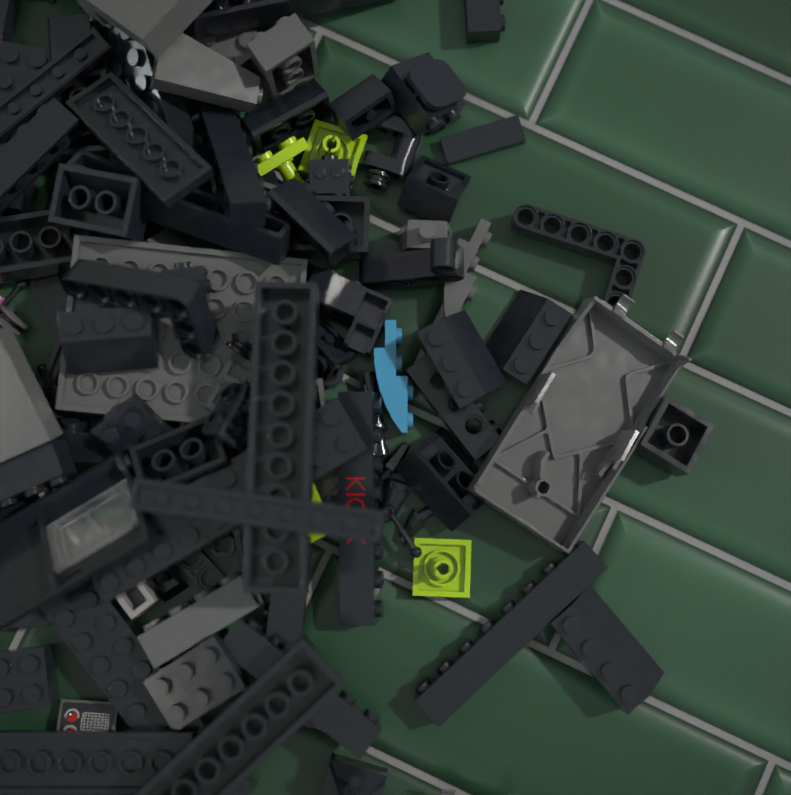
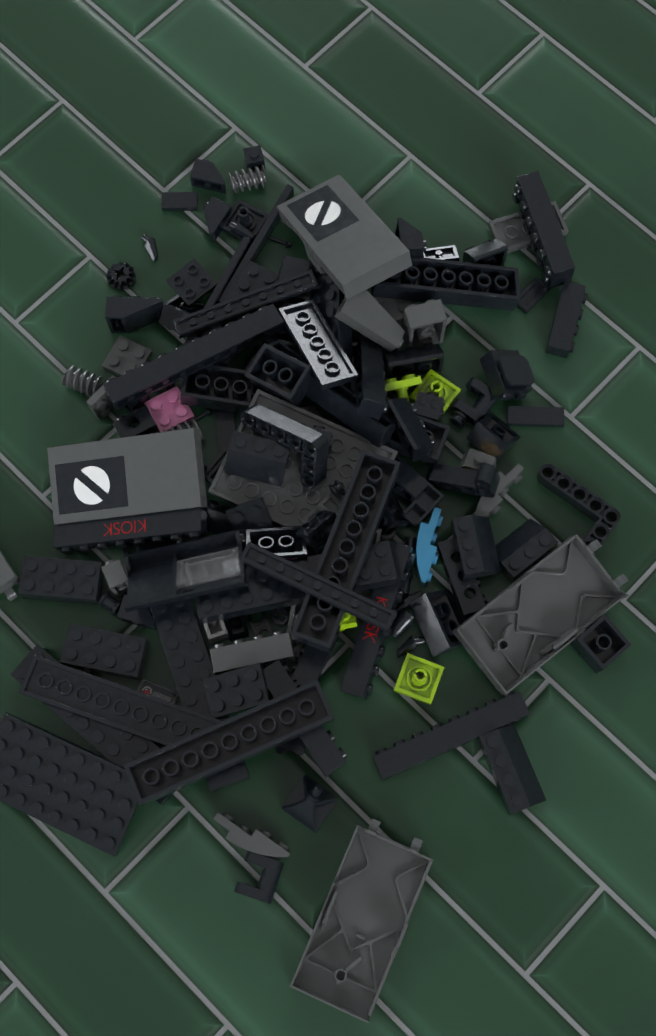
camera: 25 degrees right, 10 degrees down
(363, 107) = (464, 370): black brick -> none
(390, 512) = (396, 629): black hinge -> none

